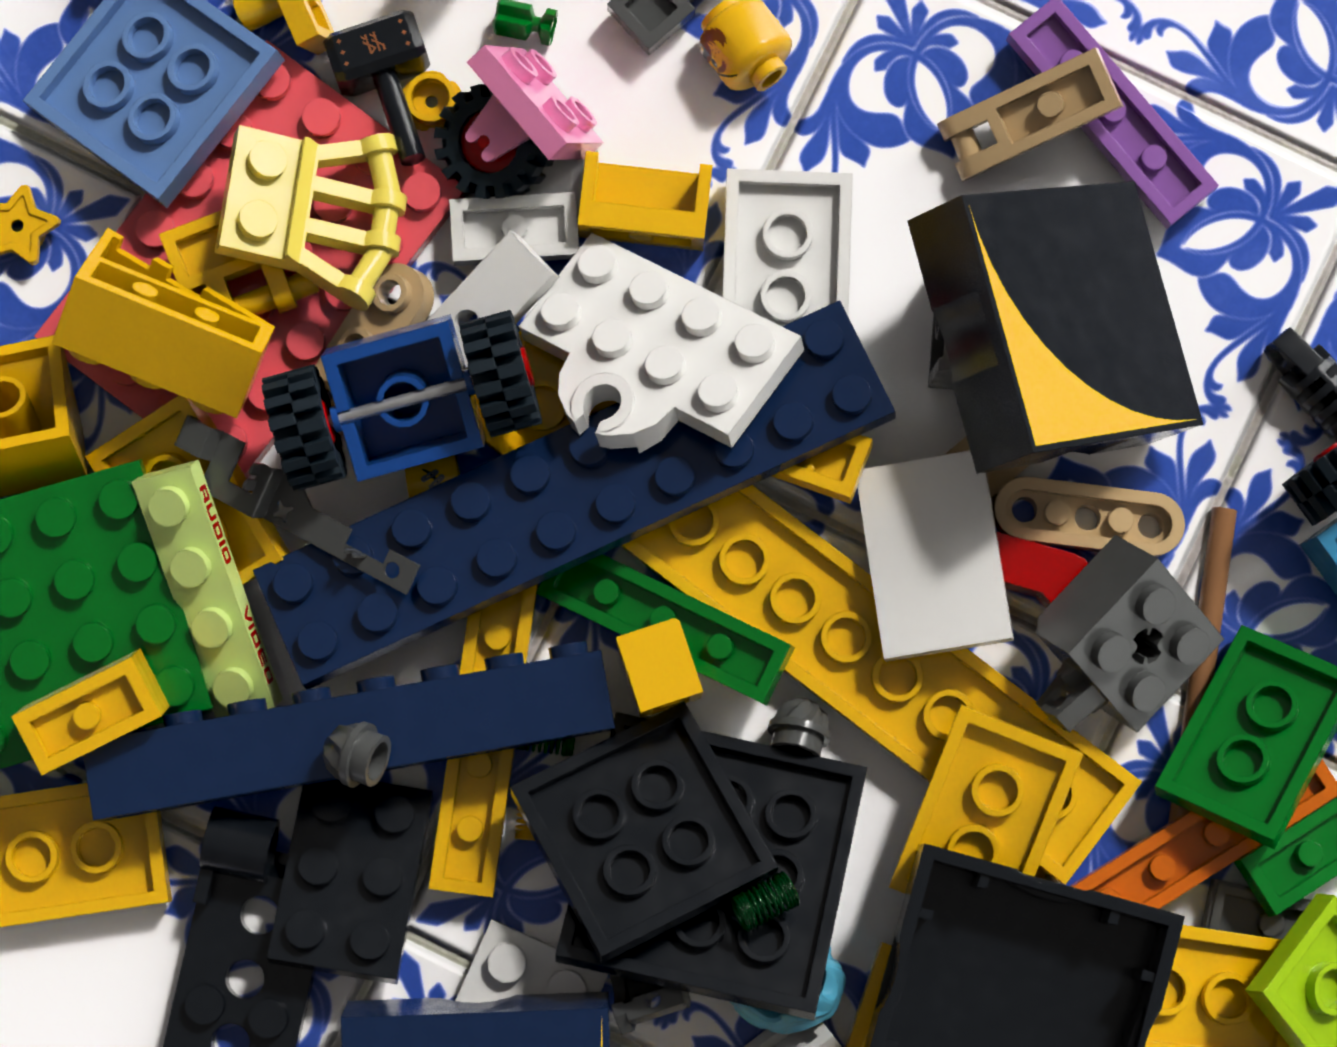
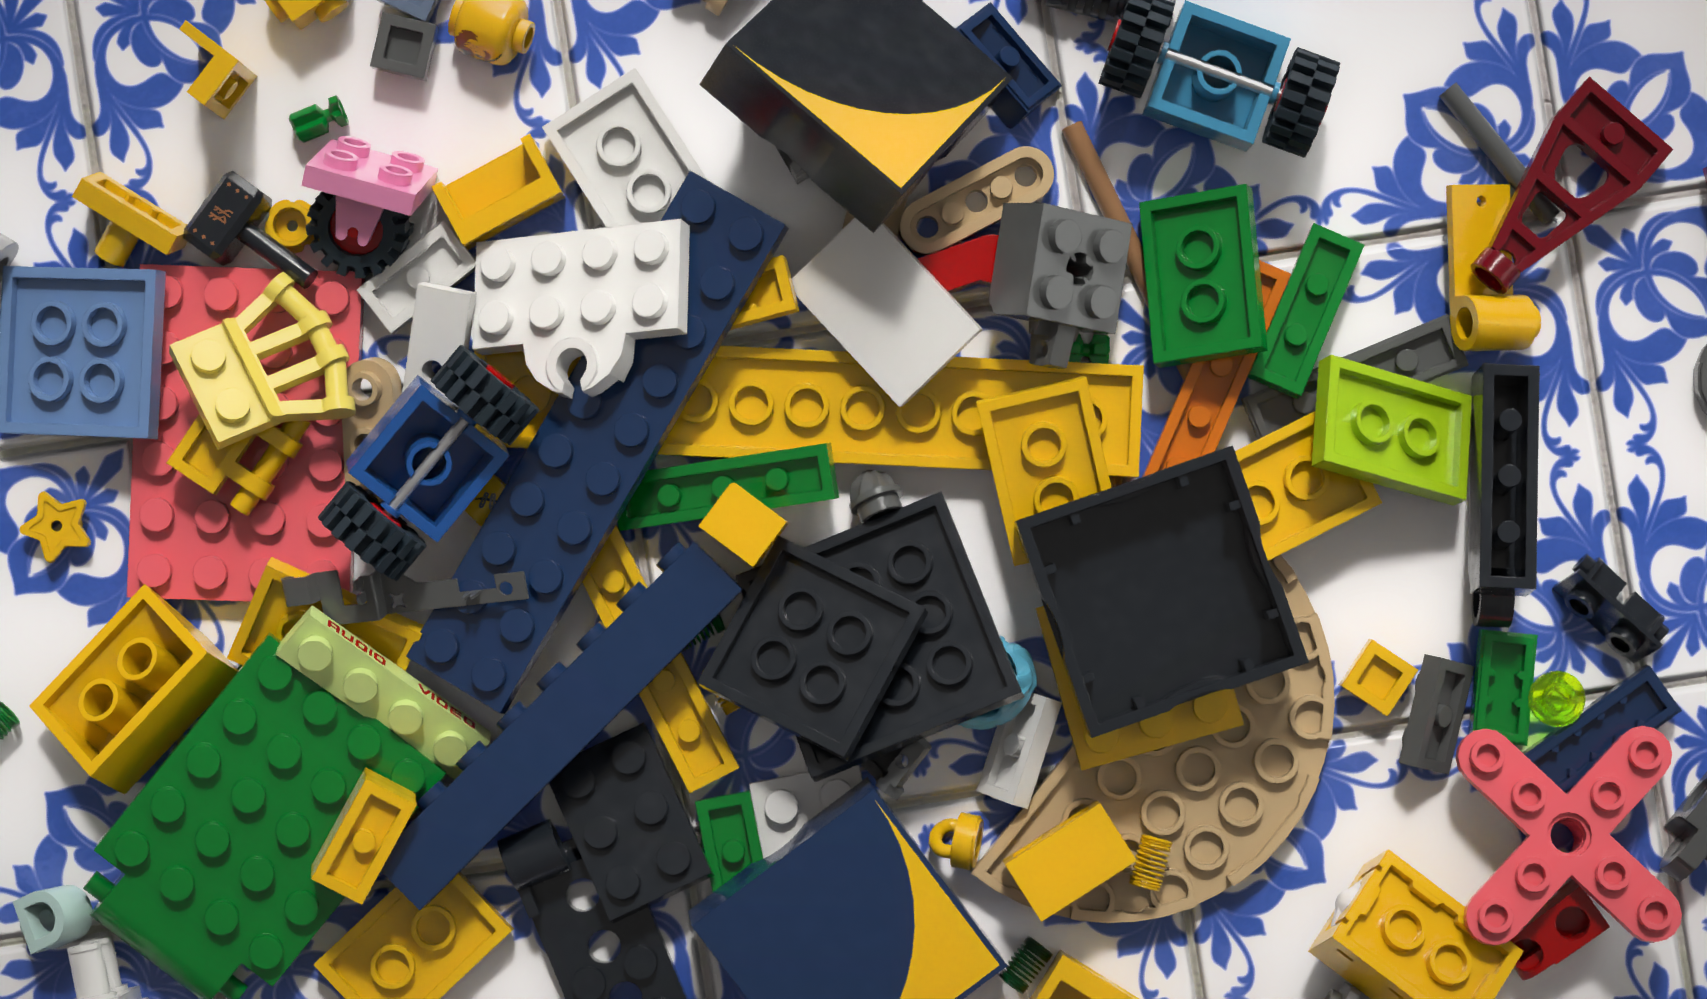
camera: 30 degrees left, 5 degrees up
(161, 330) = (220, 532): yellow wedge -> none
(357, 754) = (573, 735): dark grey plate -> none
(438, 955) = (729, 834): none -> green plate
(746, 911) = (938, 620): dark green piece -> none
(1106, 736) = (1096, 350): none -> green piece
(1215, 442) = (1031, 78): none -> dark blue slope

